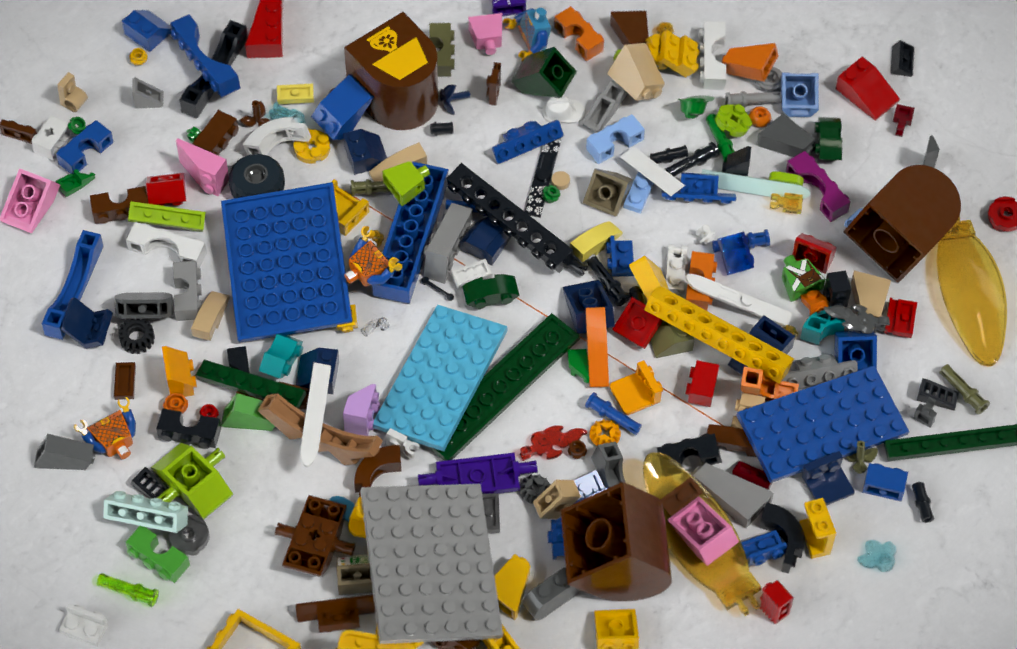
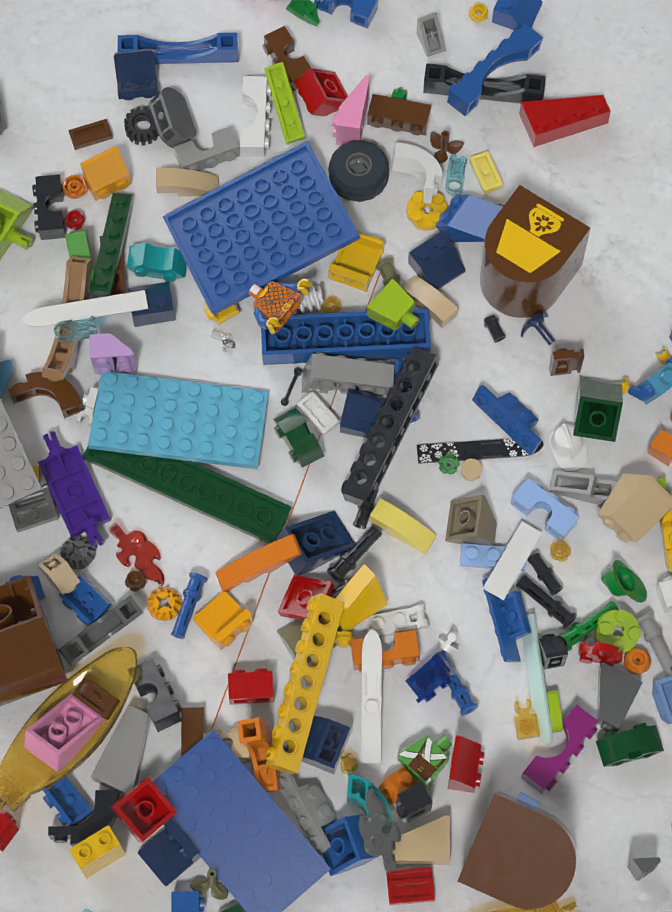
camera: 75 degrees right, 10 degrees up
(112, 433) = (23, 141): torso -> none
(238, 358) = (141, 226): black slope -> none
(332, 422) = (78, 329): none -> clear light blue piece
(441, 36) = (582, 302): olive arch -> none
(486, 32) = (640, 336): bright pink torso -> none
(578, 363) = (239, 549): green slope -> none
(620, 257) = (391, 558): blue bracket -> none
(652, 136) = (560, 545): none -> clear yellow plate
(751, 134) = (600, 653): none -> red plate
(751, 474) = (155, 763): dark red slope -> none
(792, 482) = (143, 809): none -> red slope

